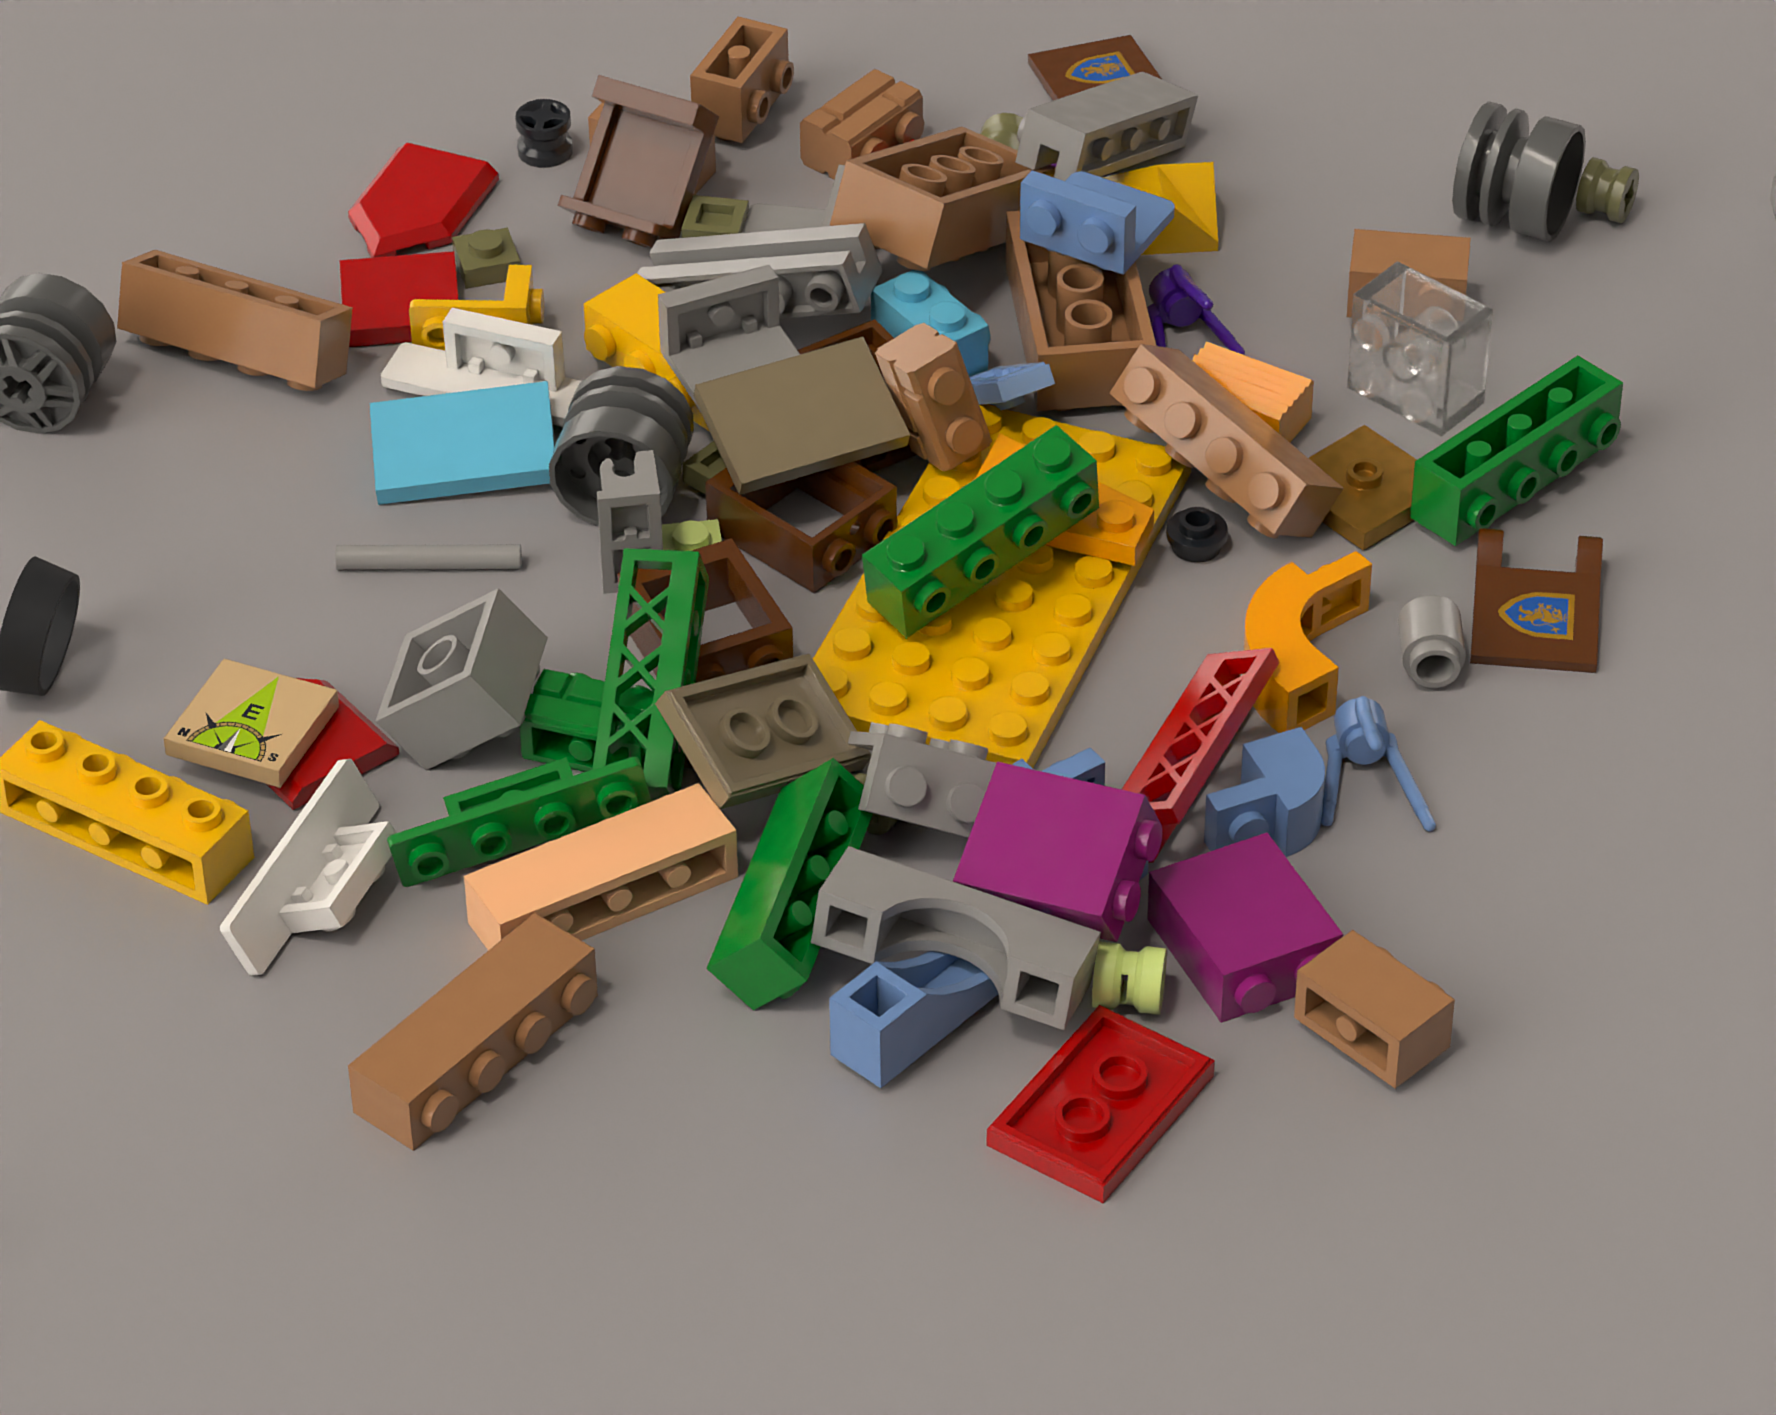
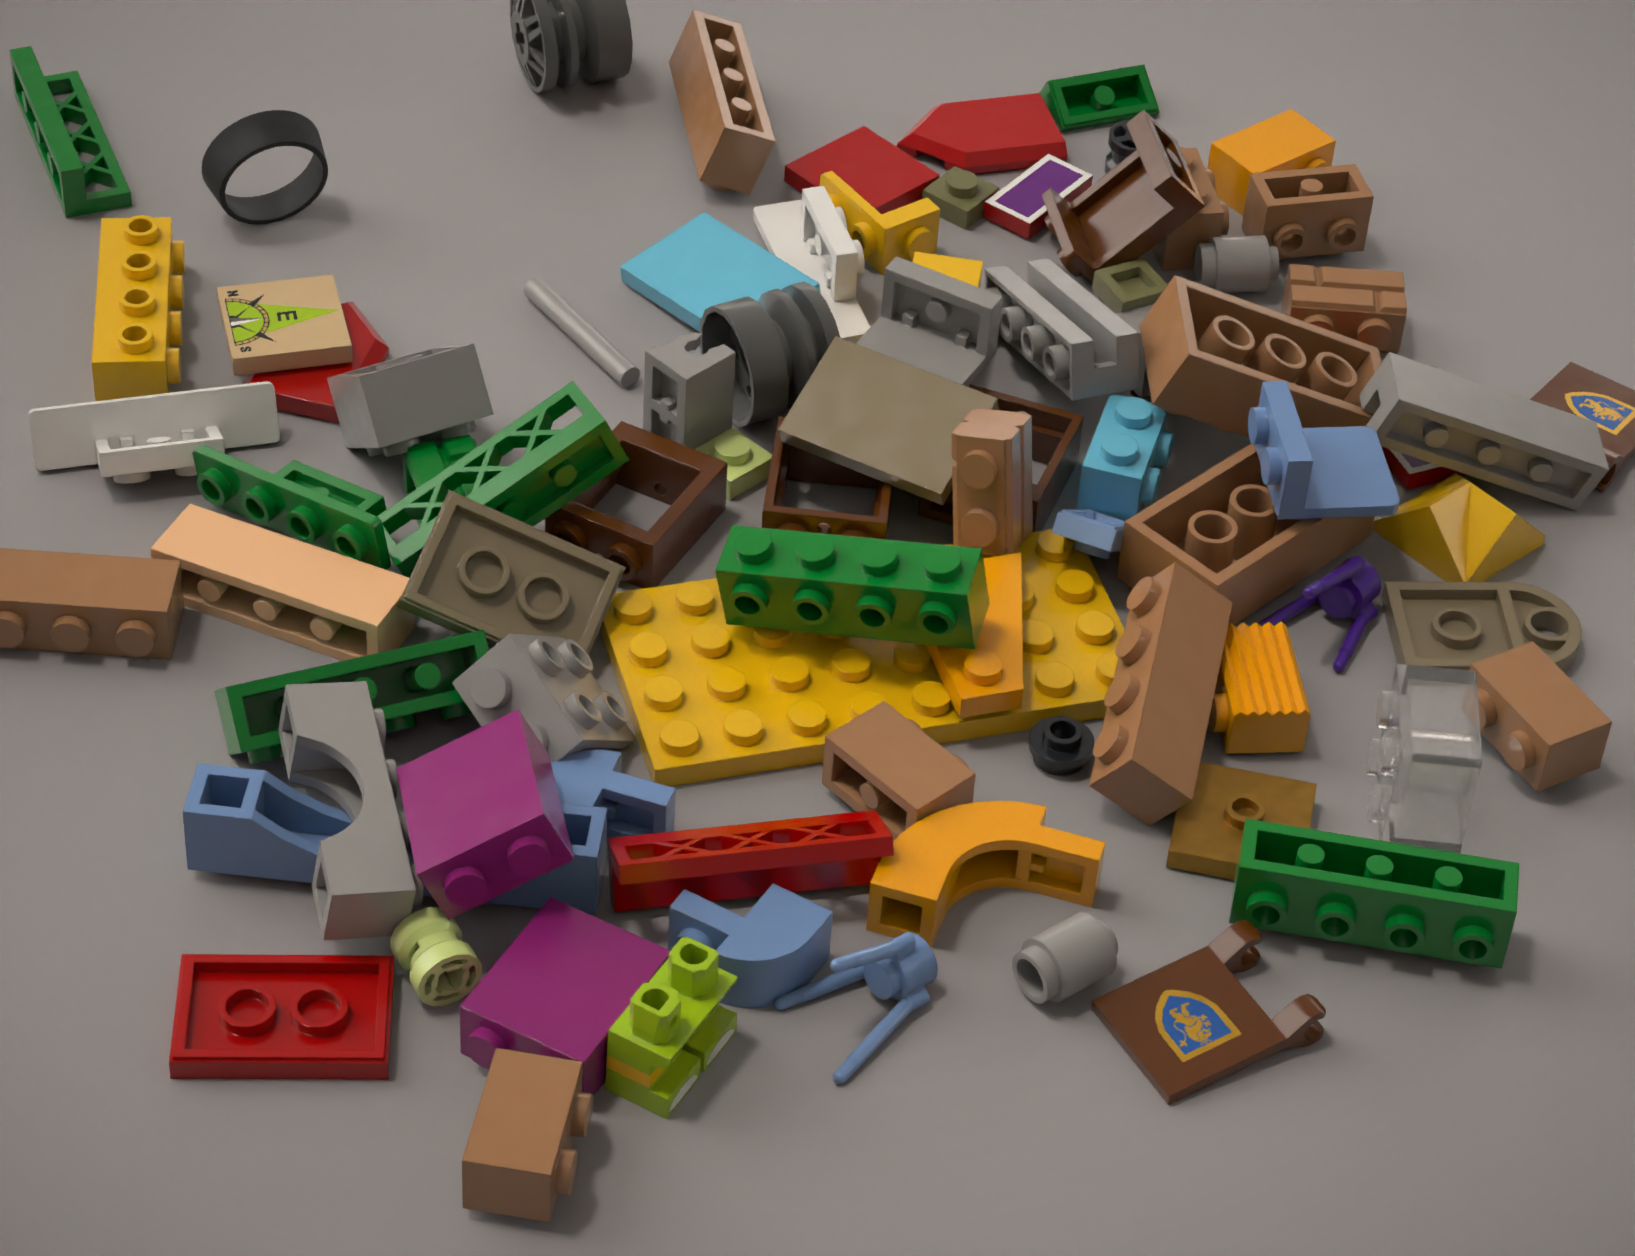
camera: 50 degrees right, 0 degrees up
(446, 113) = (1099, 98): none -> green slope
(532, 215) = (1020, 203): none -> tile
(649, 53) = (1269, 146): none -> light orange brick
(747, 153) = (1236, 263): none -> light grey brick
(1171, 626) = (893, 768): none -> medium nougat brick
(1271, 267) = (1471, 621): none -> dark tan tile
(1336, 865) = (671, 1029): none -> lime hips

